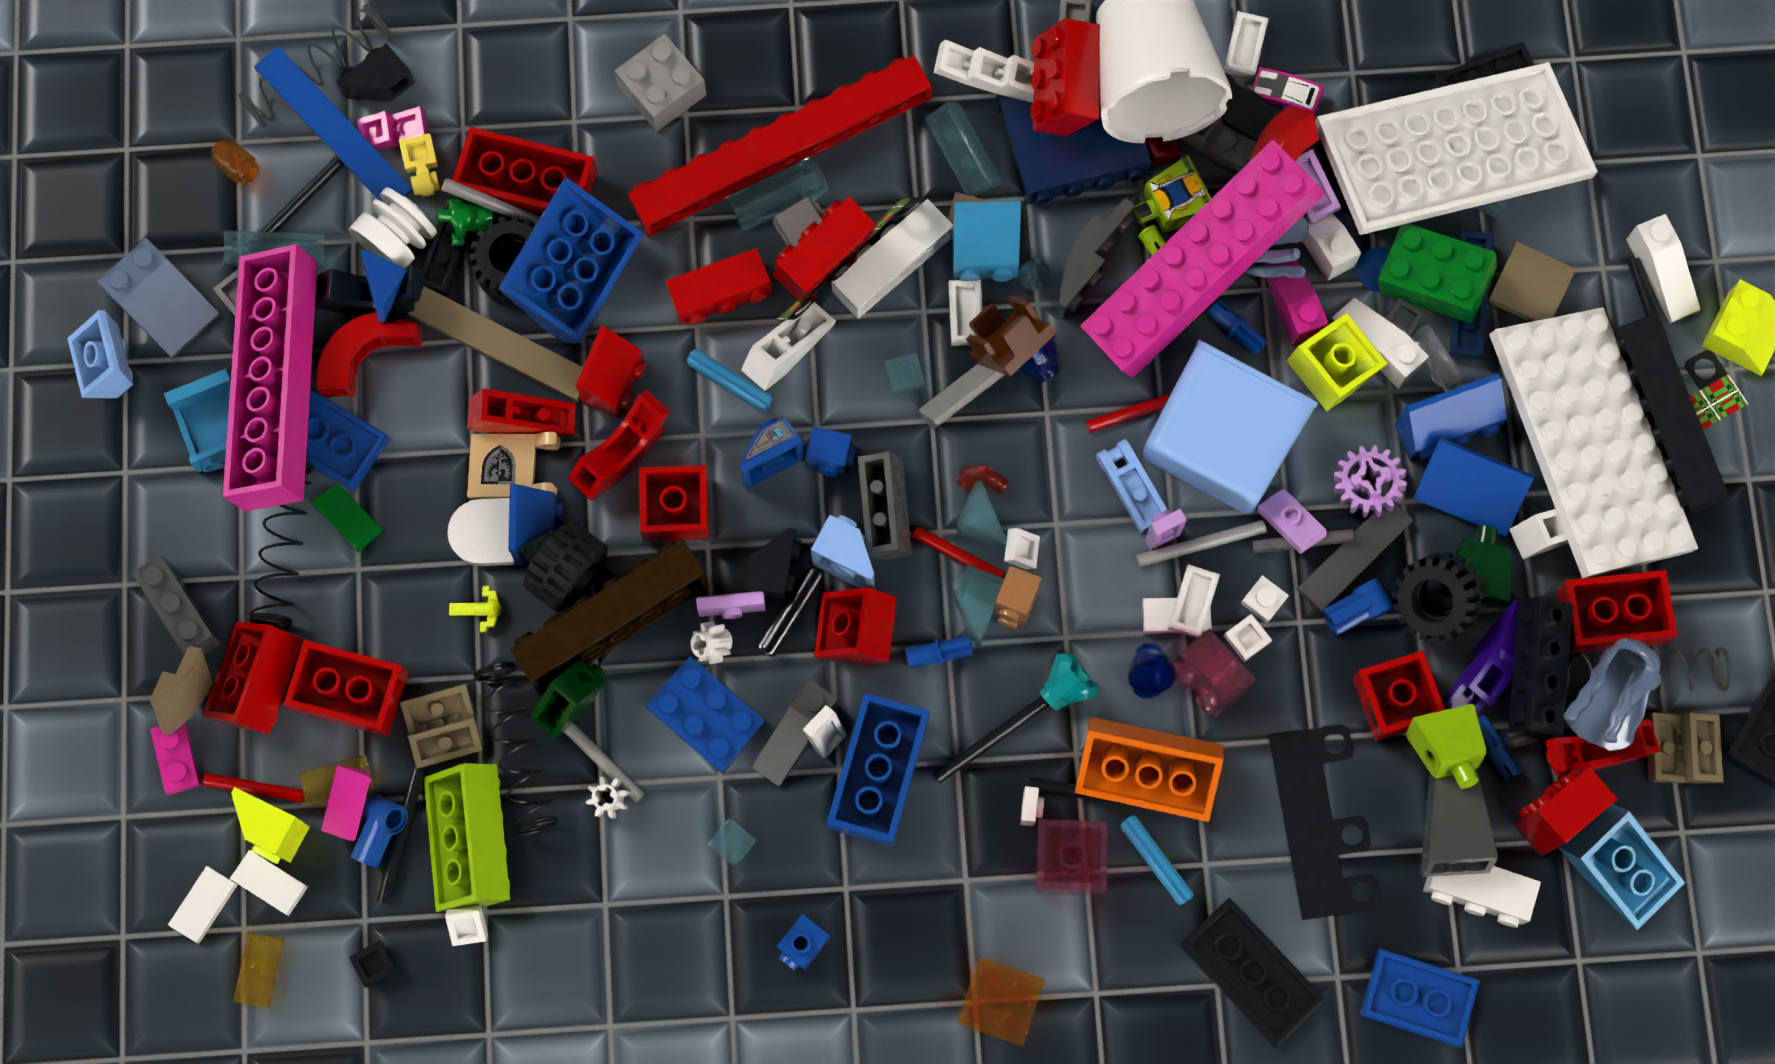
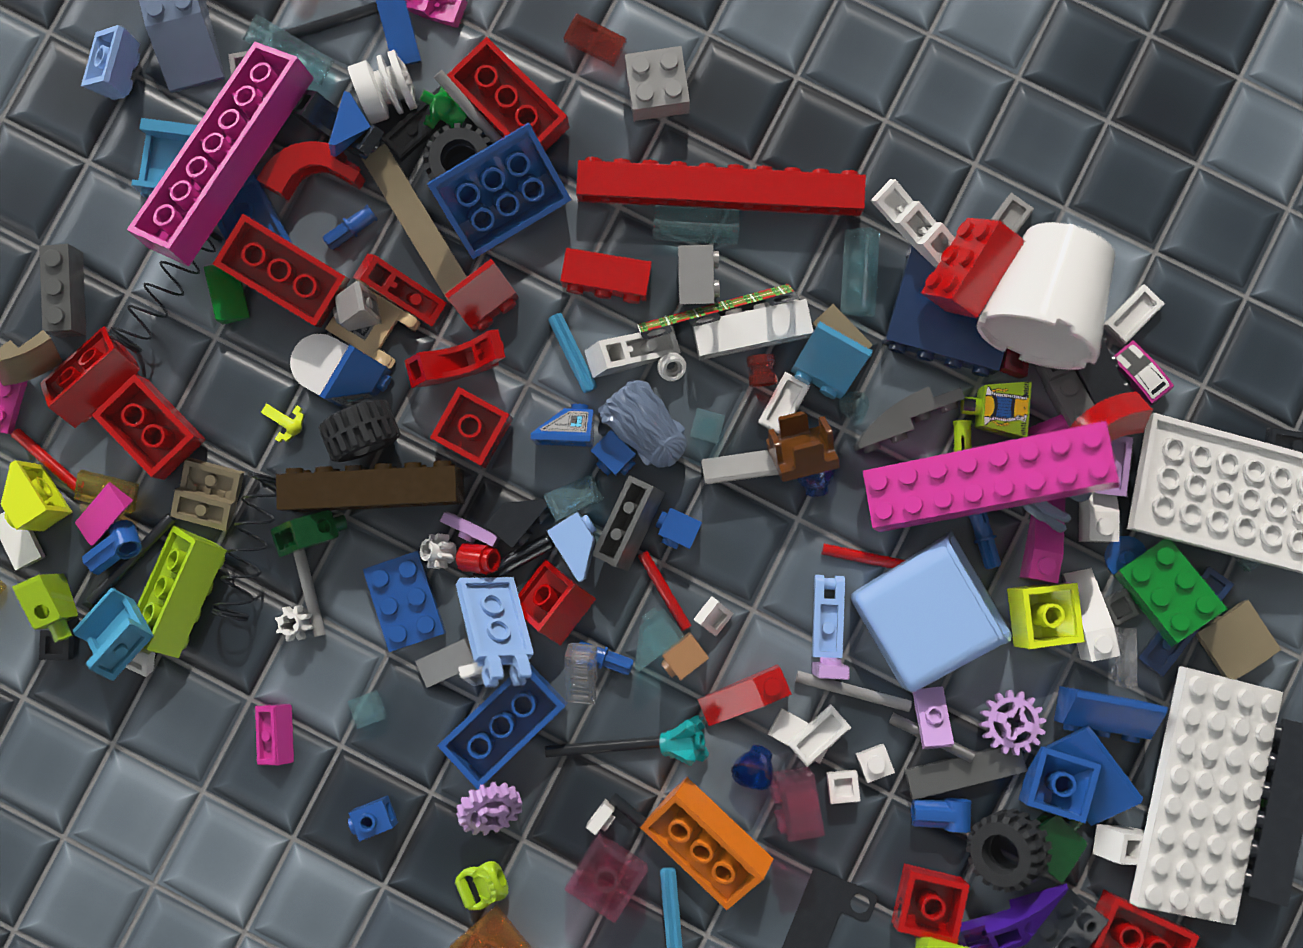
camera: 35 degrees right, 10 degrees up
(335, 915) = (47, 604): none -> lime torso
(395, 459) = (281, 271): none -> red brick
(419, 157) = (439, 38): light yellow plate -> none
(430, 909) = (114, 633): none -> dark azure panel
(435, 385) = (349, 227): none -> blue axle
(490, 453) = (356, 307): none -> light grey slope
(574, 76) = (595, 40): none -> clear red plate
(651, 924) = (274, 734): none -> dark pink slope
(755, 626) = (477, 558): none -> red brick
(814, 512) = (573, 497): none -> clear light blue slope
(816, 675) = (496, 628): none -> light blue tile
(823, 247) = (698, 295): red brick -> none
(843, 402) = (644, 424): none -> sand blue hair
(844, 337) = (675, 373): none -> white plate
(914, 859) = (489, 808): none -> lavender gear
(917, 659) = (585, 657): none -> clear slope
(925, 291) = (762, 368): none -> clear red wheel
(936, 485) = (677, 529): none -> blue brick
(958, 939) = (489, 883): none -> lime piece
(980, 521) = (695, 574): clear light blue slope -> none
(989, 477) = (719, 540): clear red arm -> none
(1099, 606) = (745, 695): none -> slope
(1448, 508) = (1060, 784): none -> blue slope

